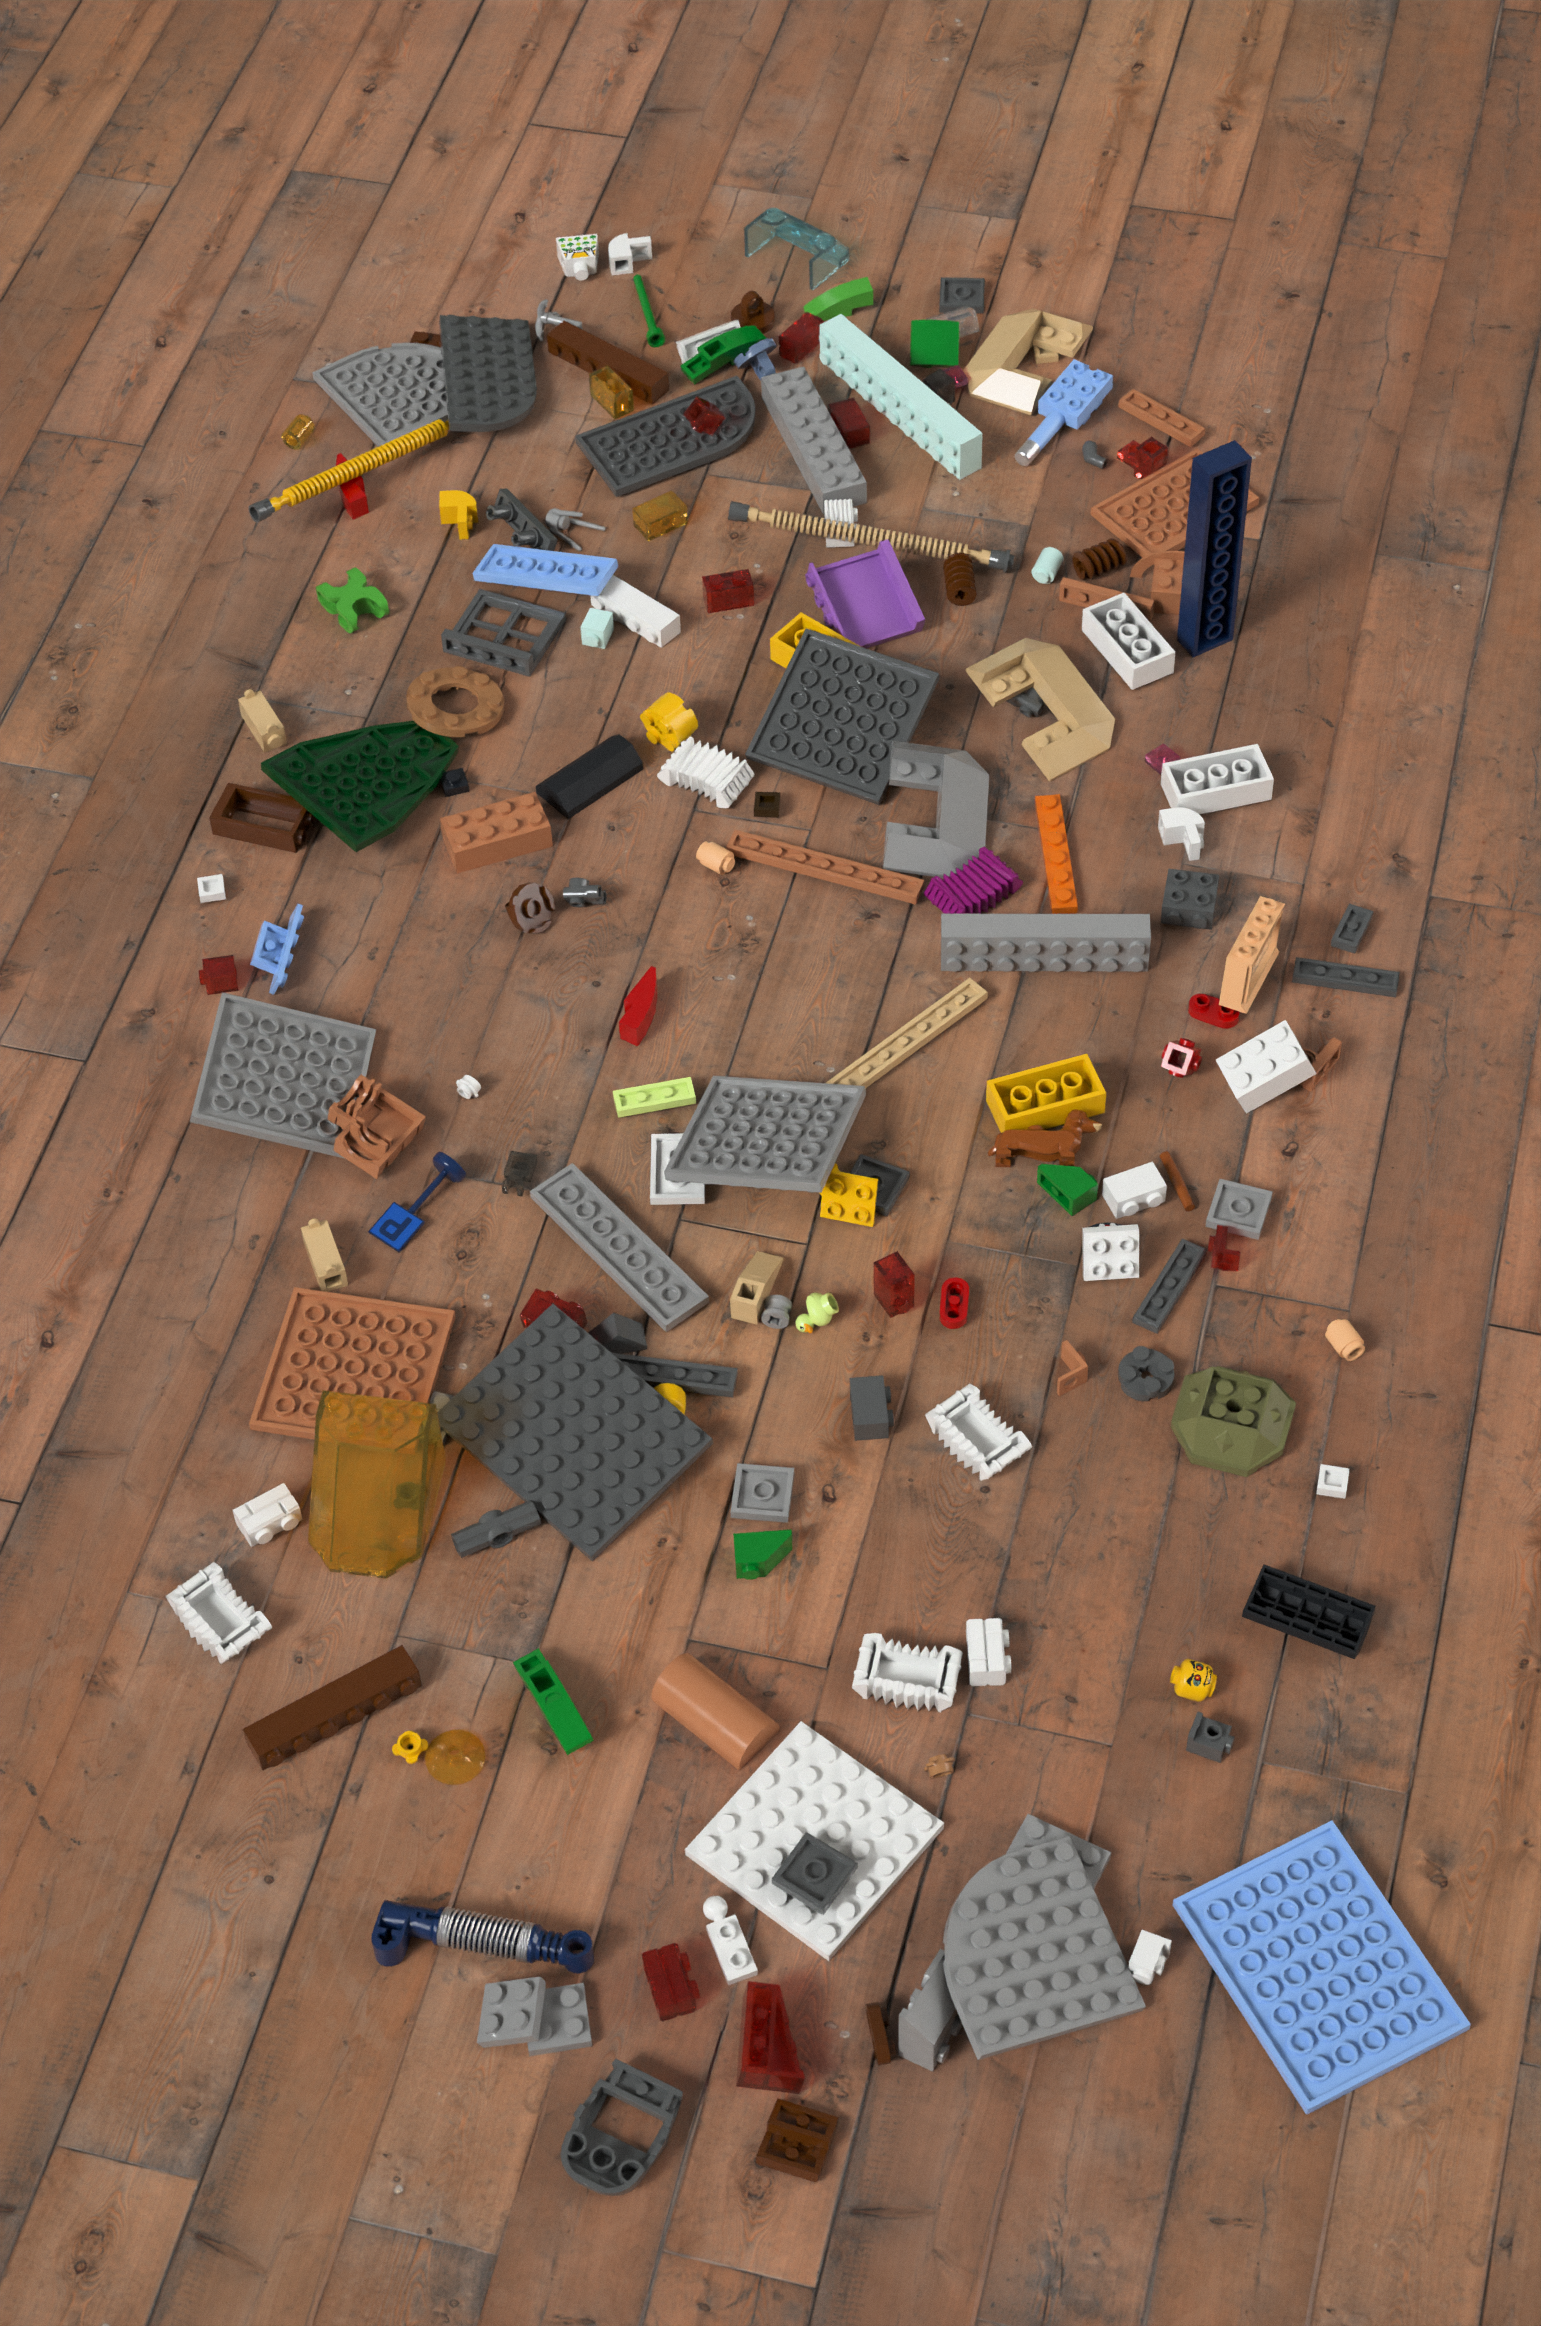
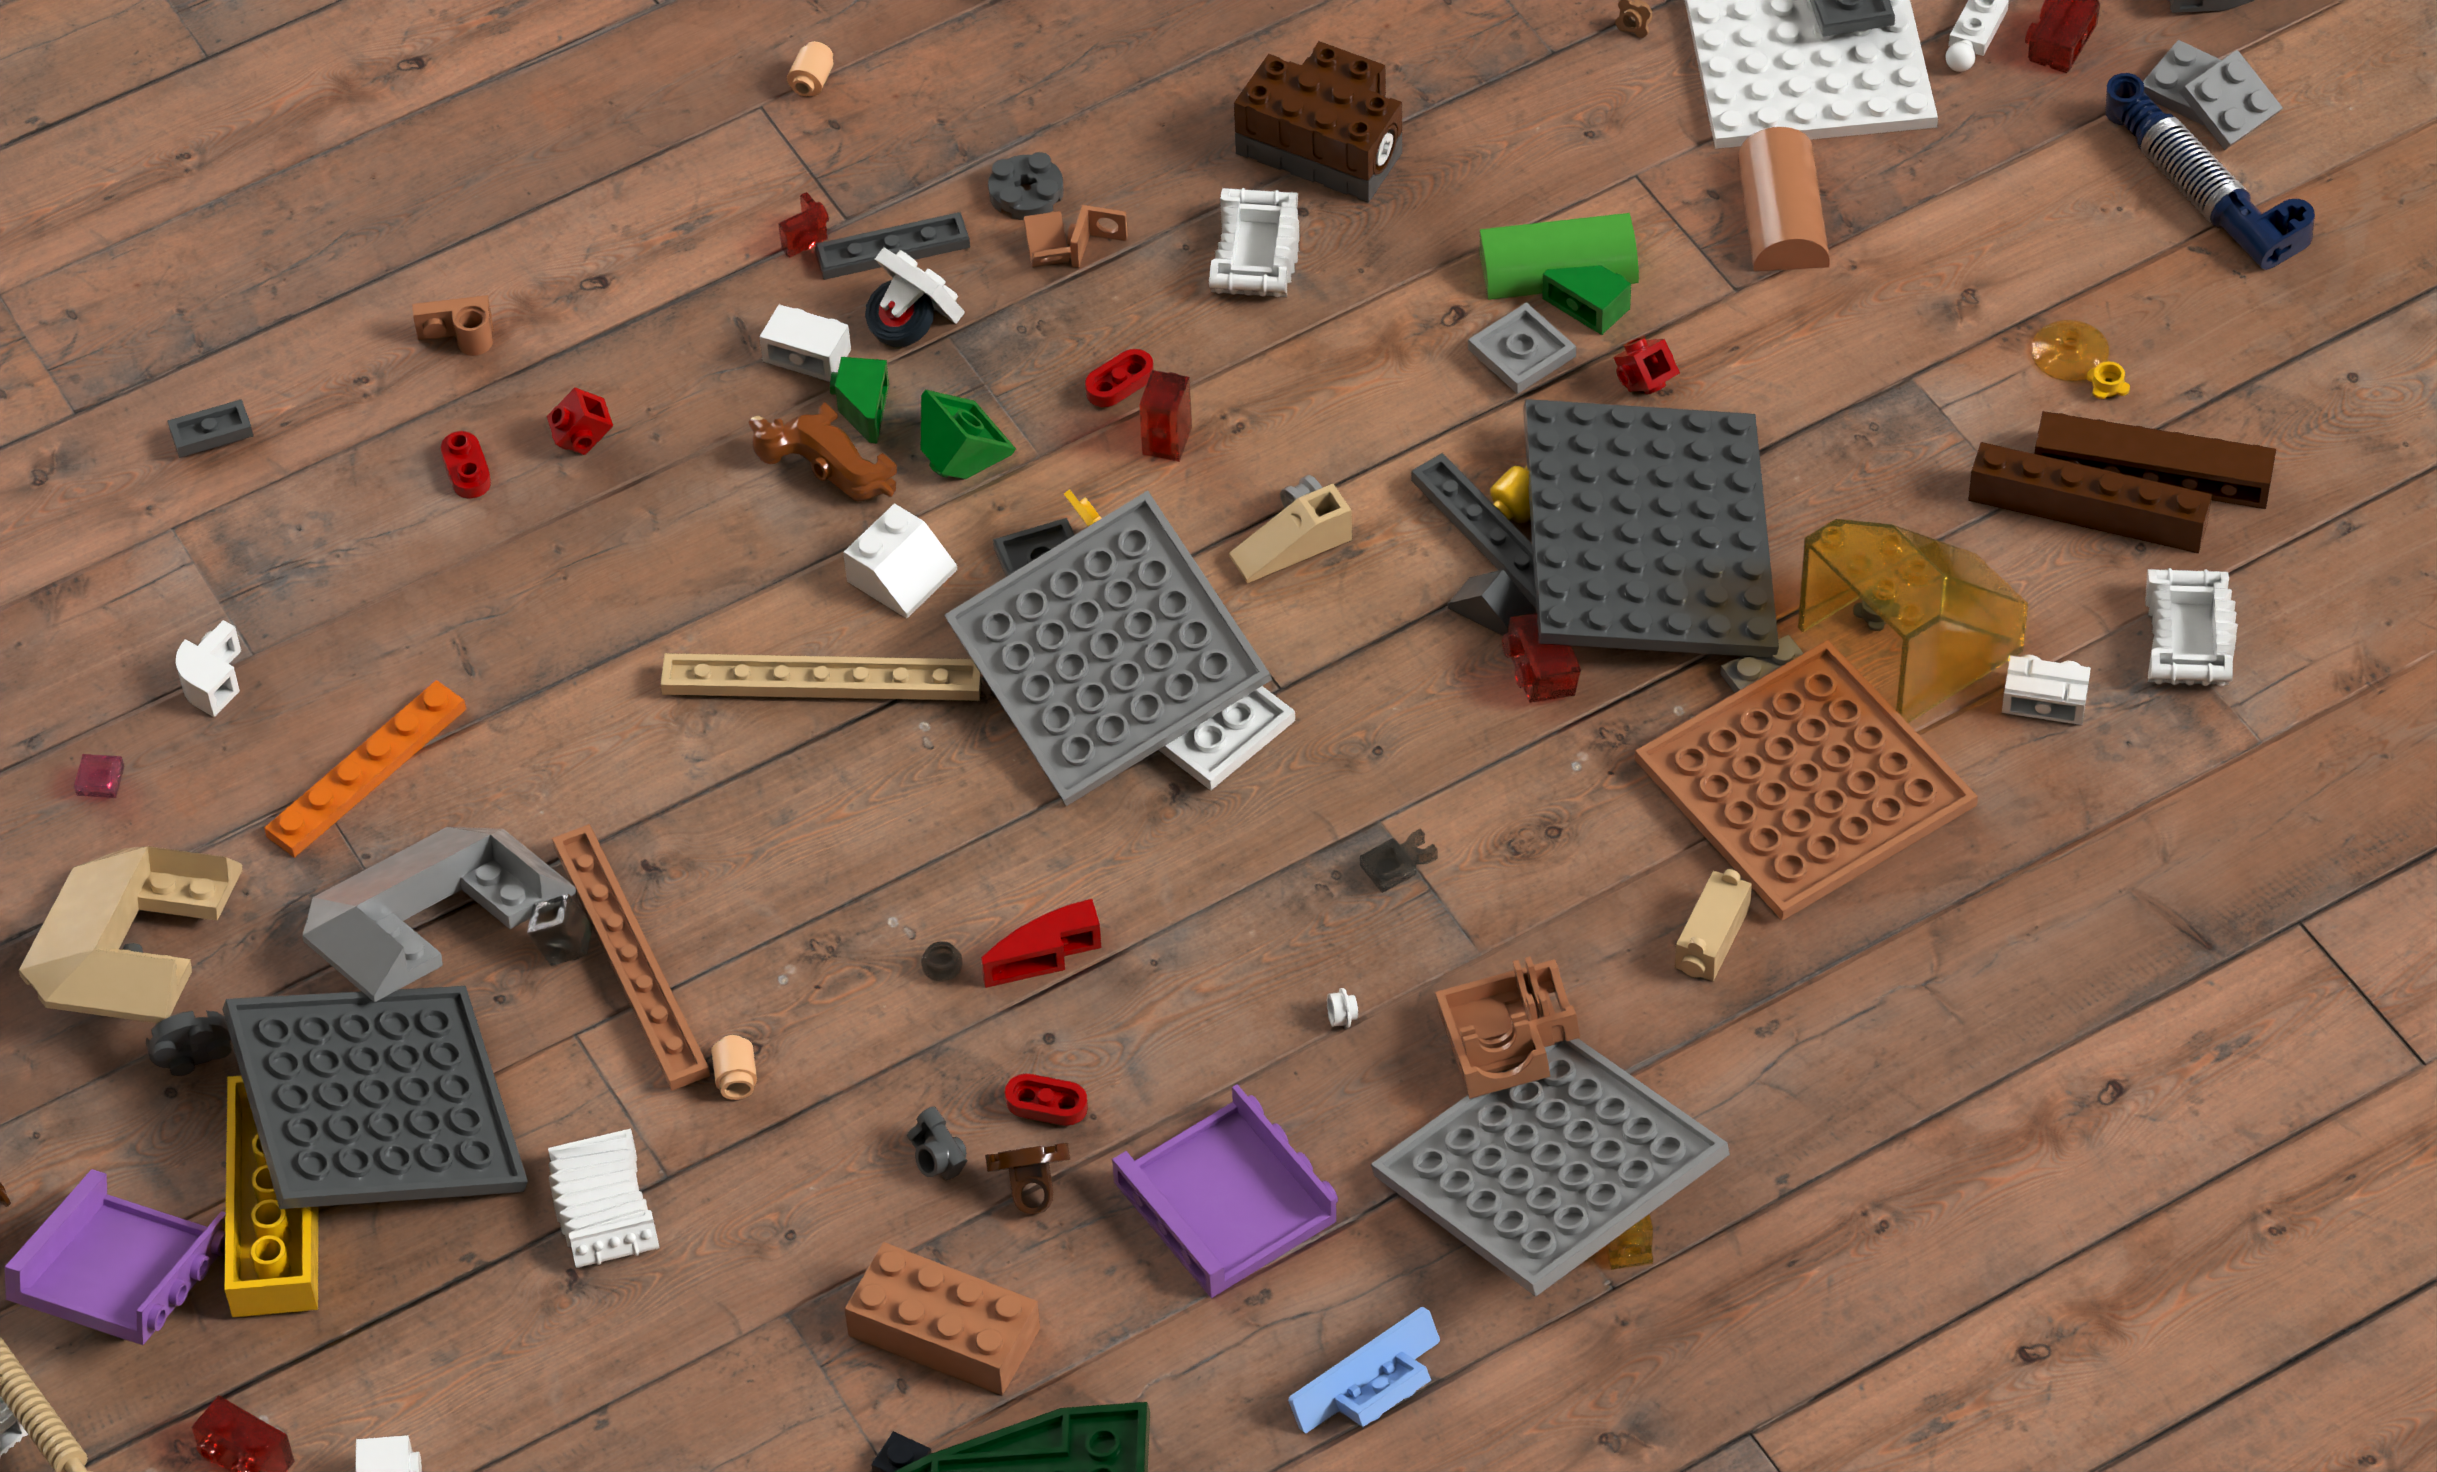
camera: 135 degrees left, 0 degrees up
(219, 975) = (1480, 1398): clear red brick -> none
(346, 1649) = (2089, 497): none -> reddish brown brick
(399, 1225) = (1587, 911): dark blue piece -> none
(433, 971) = (1228, 1194): none -> medium lavender panel
(495, 1529) = (1818, 503): dark grey piece -> none
(553, 1701) = (1932, 312): green slope -> none
(558, 949) = (1047, 1098): none -> red plate
(591, 776) = (734, 1323): black piece -> none
(619, 1247) = (1383, 696): light grey plate -> none
(654, 1097) = (1154, 829): yellowish green plate -> none
(669, 721) = (567, 1285): yellow brick -> none
(676, 1526) = (1645, 365): none -> red brick
(682, 970) = (941, 961): none -> clear smoke plate
(767, 804) = (588, 1093): dark brown plate -> none
(806, 1567) = (1520, 254): none -> bright green brick
(820, 1312) = (1259, 464): yellowish green animal -> none
(863, 842) = (560, 929): none -> clear smoke brick
(869, 1408) = (1327, 342): dark grey brick -> none
(906, 1673) = (1574, 101): white piece -> none
(937, 1121) = (898, 561): none -> white slope
(955, 685) = (188, 1041): none -> dark grey plate
(975, 887) = (510, 789): magenta piece -> none
(986, 1652) = (1482, 67): white brick -> none
(992, 1206) = (959, 436): none -> green slope
(1023, 1525) = (1322, 120): none -> reddish brown piece
(1045, 942) = (542, 642): light grey brick -> none
(1046, 1094) = (766, 488): yellow brick -> none
(1091, 1346) = (1046, 239): none -> nougat bracket
(1177, 1181) = (746, 331): dark orange piece -> none
(1189, 899) = (318, 587): dark grey brick -> none
(1218, 780) = (96, 683): white brick -> none
(1227, 1439) = (1000, 85): olive piece -> none
(1239, 1208) = (732, 253): light grey plate -> none
(1252, 956) = (367, 431): light nougat window -> none
(1265, 1066) = (522, 332): white brick -> none
(1345, 977) = (289, 394): dark grey tile -> none

